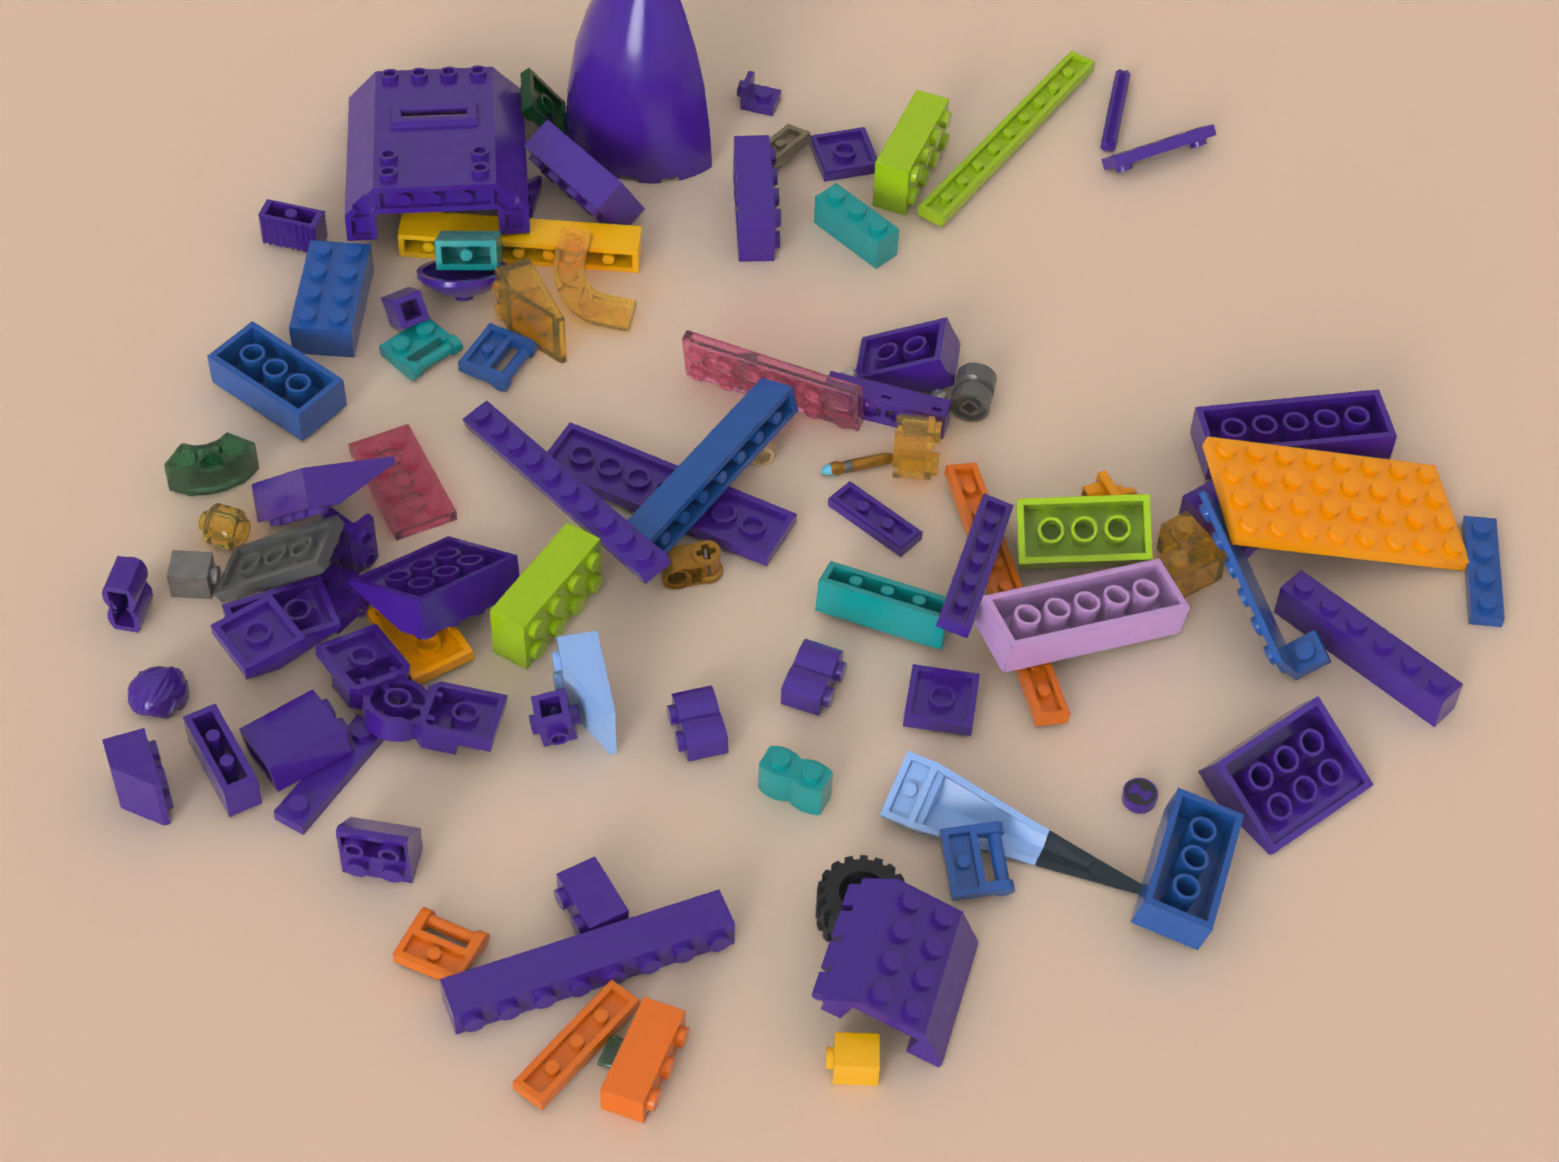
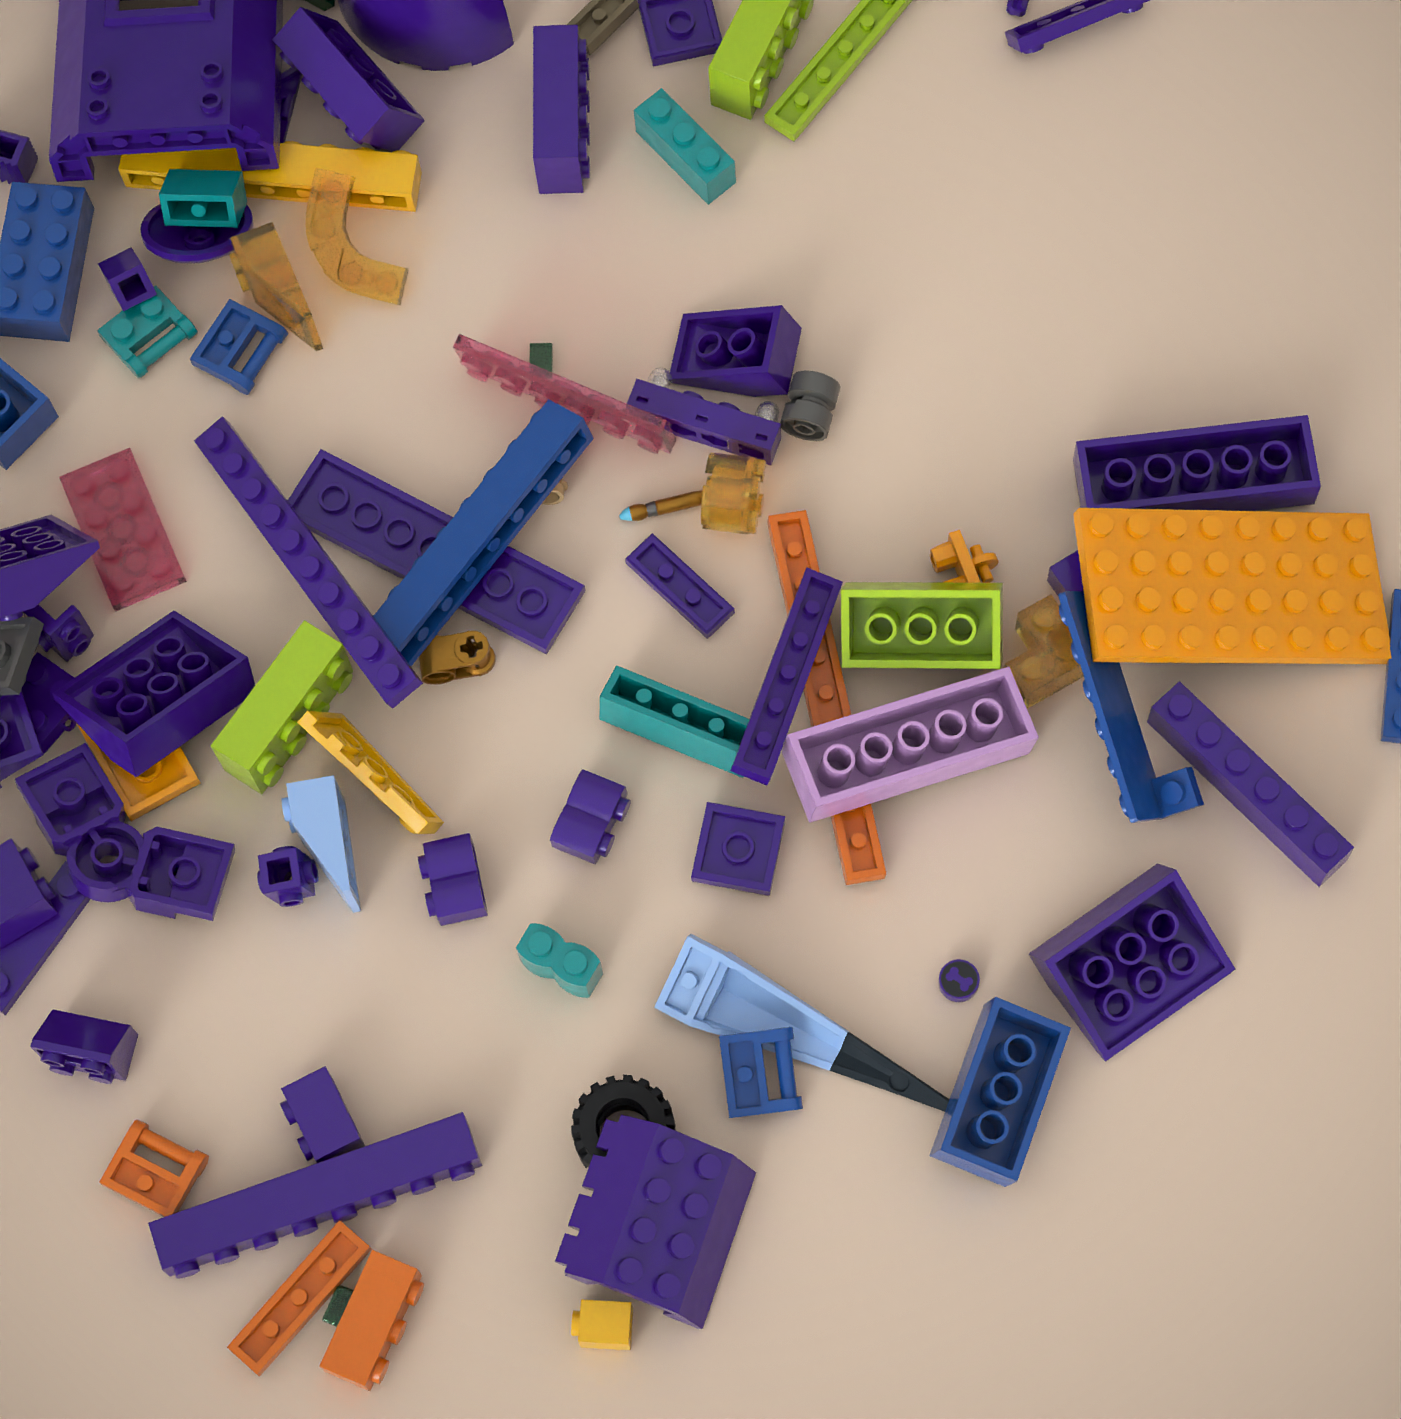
camera: 10 degrees right, 20 degrees up
(619, 639) = (366, 763): none -> yellow wing

